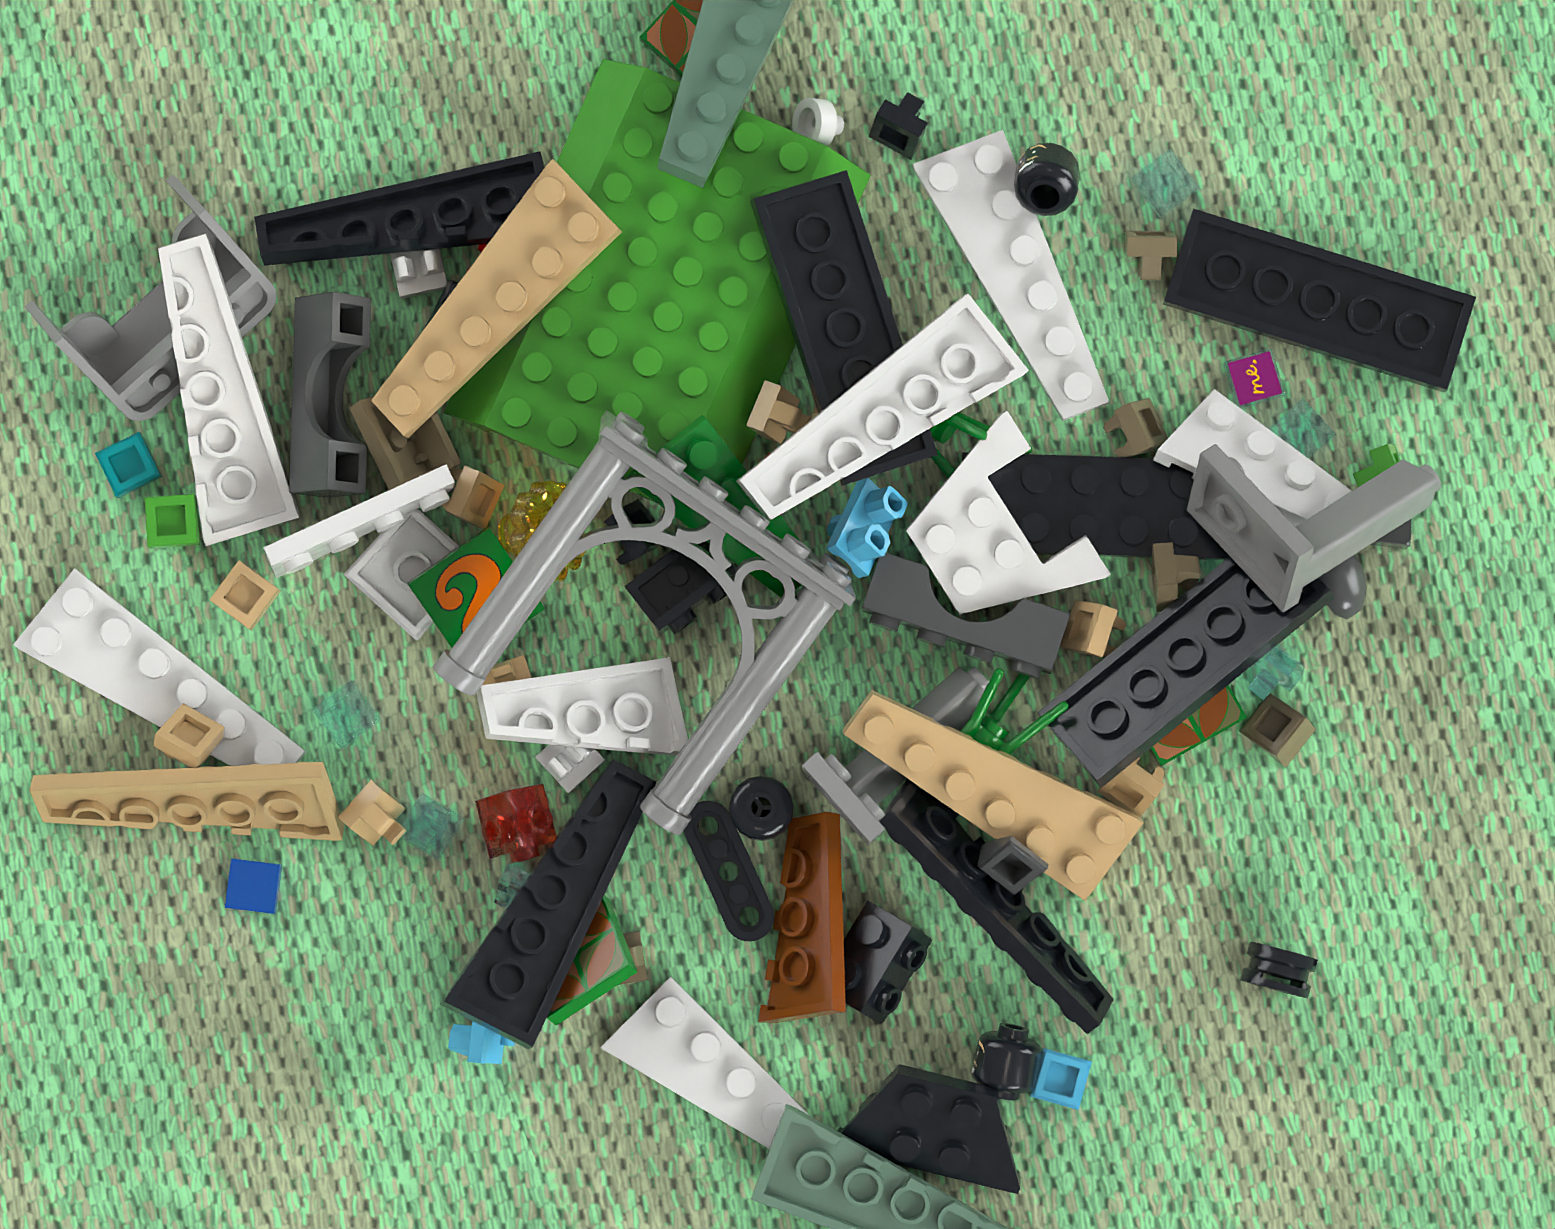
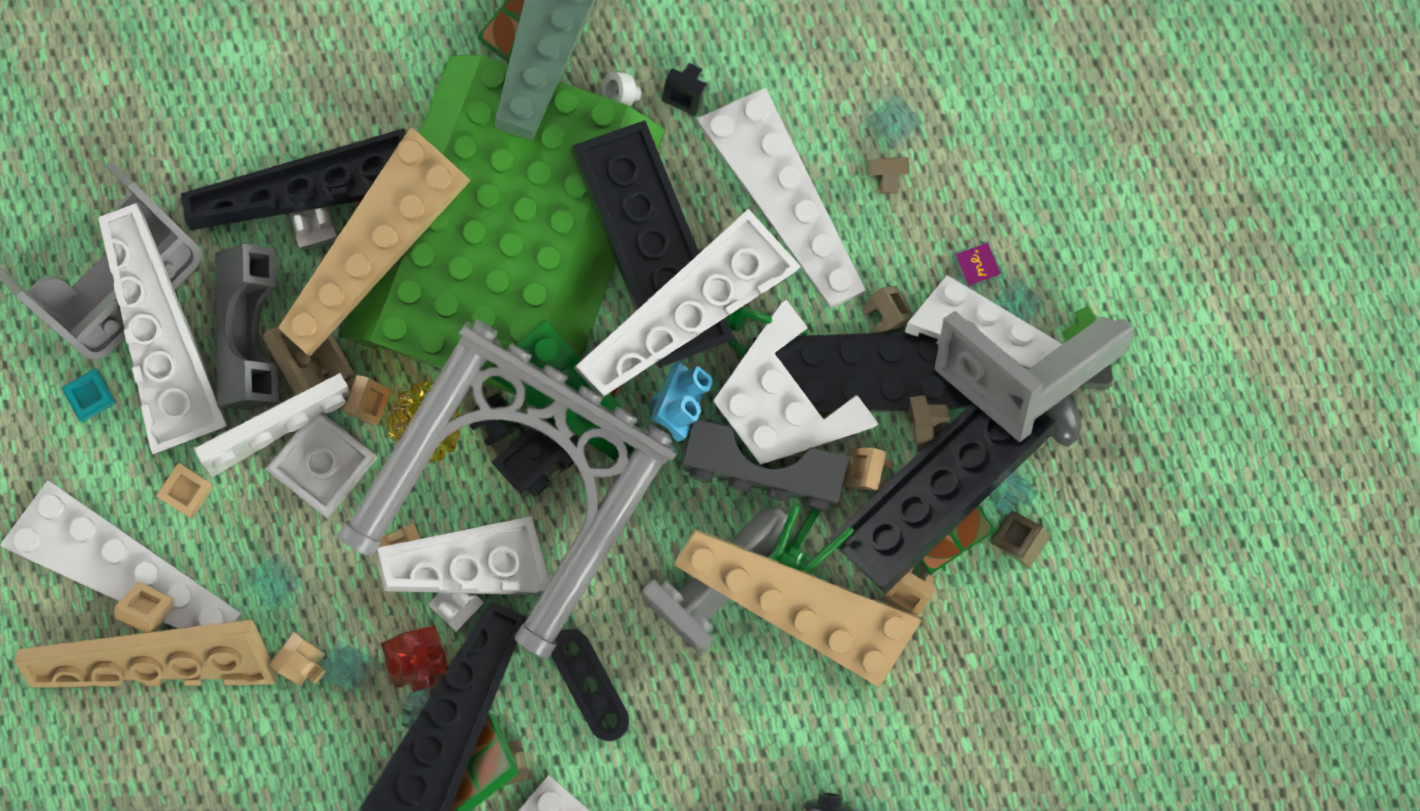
camera: 15 degrees left, 5 degrees down
(172, 521) = (123, 436): bright green tile -> none
(253, 886) = (204, 726): blue tile -> none
(462, 582) = (357, 467): tile -> none
(753, 825) = (606, 645): black head -> none
(776, 413) = (602, 316): tan tile -> none
(810, 946) = (660, 736): dark orange wing -> none
(880, 960) = (713, 750): black bracket -> none
(951, 858) = (807, 693): black wing -> none
(1010, 863) = (817, 661): dark grey slope -> none
(1046, 179) = (803, 121): black head -> none
(1278, 964) = (1042, 727): black wheel -> none
(1319, 300) = (1023, 201): black plate -> none

